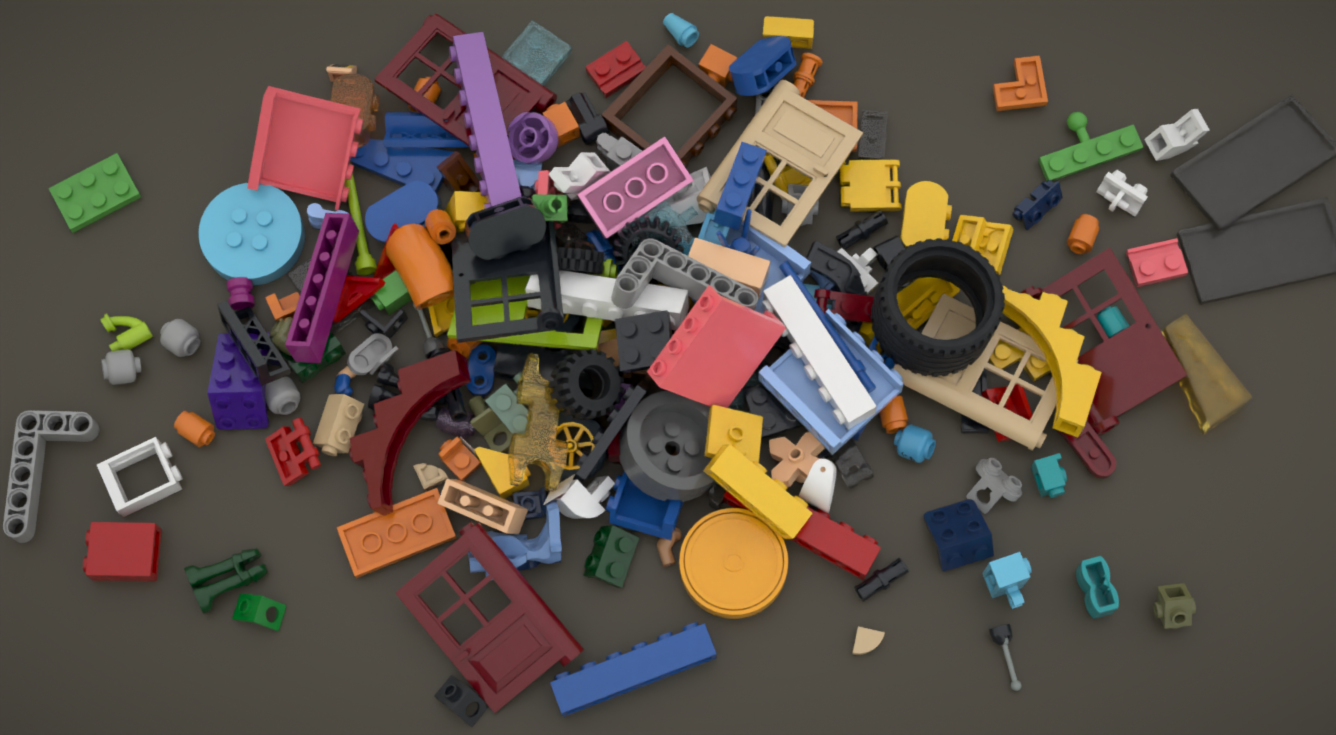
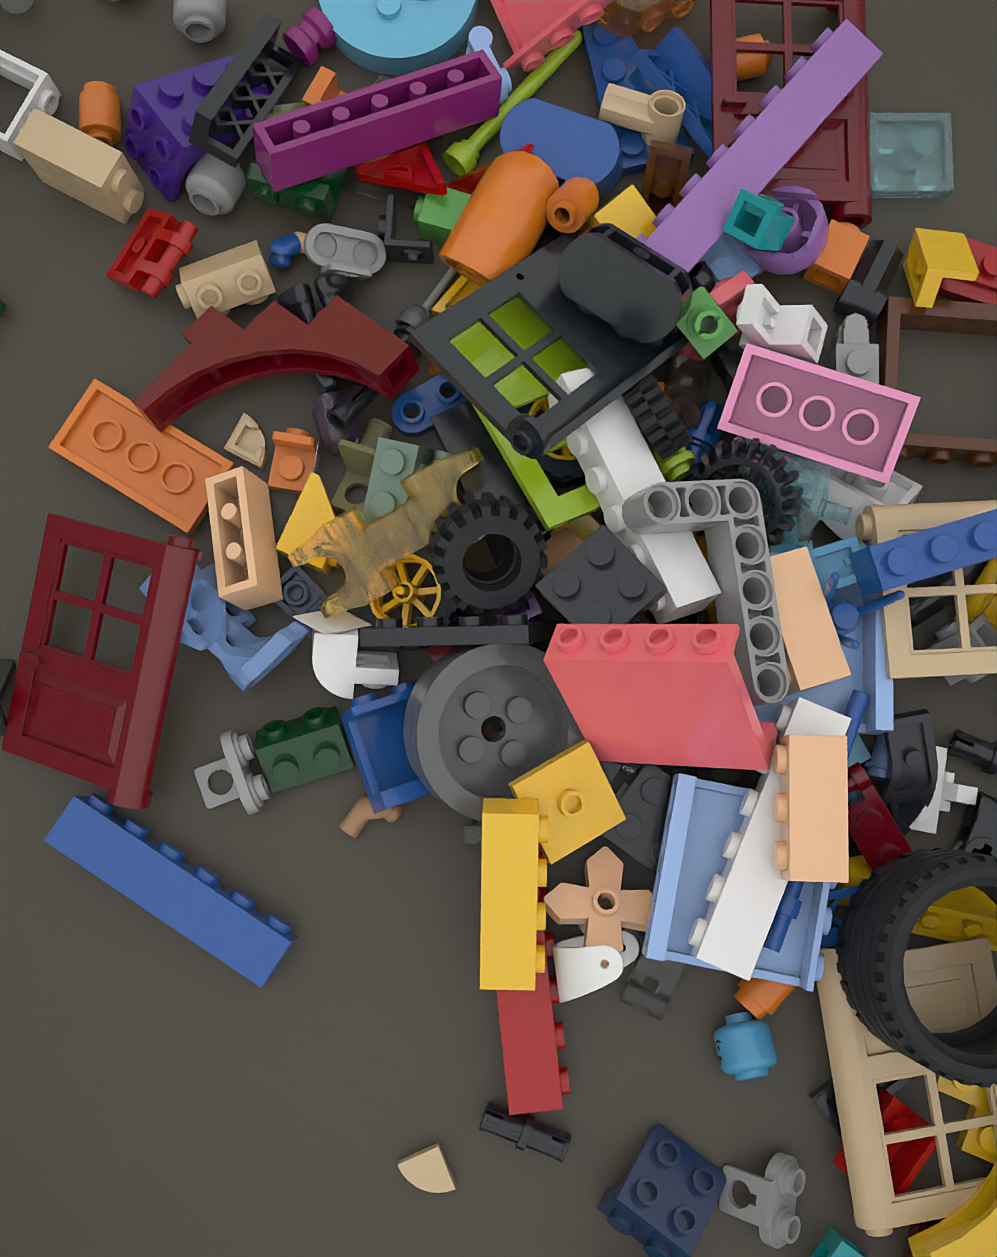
camera: 55 degrees right, 10 degrees up
(221, 453) = (80, 166): none -> tan brick
(424, 157) = (654, 115): none -> tan piece
(522, 147) = (758, 221): none -> teal brick
(599, 81) = (934, 257): none -> yellow panel
(608, 596) = (249, 788): none -> light grey bracket
(733, 563) = (400, 920): light orange brick -> none
(817, 320) = (812, 808): none -> light nougat brick

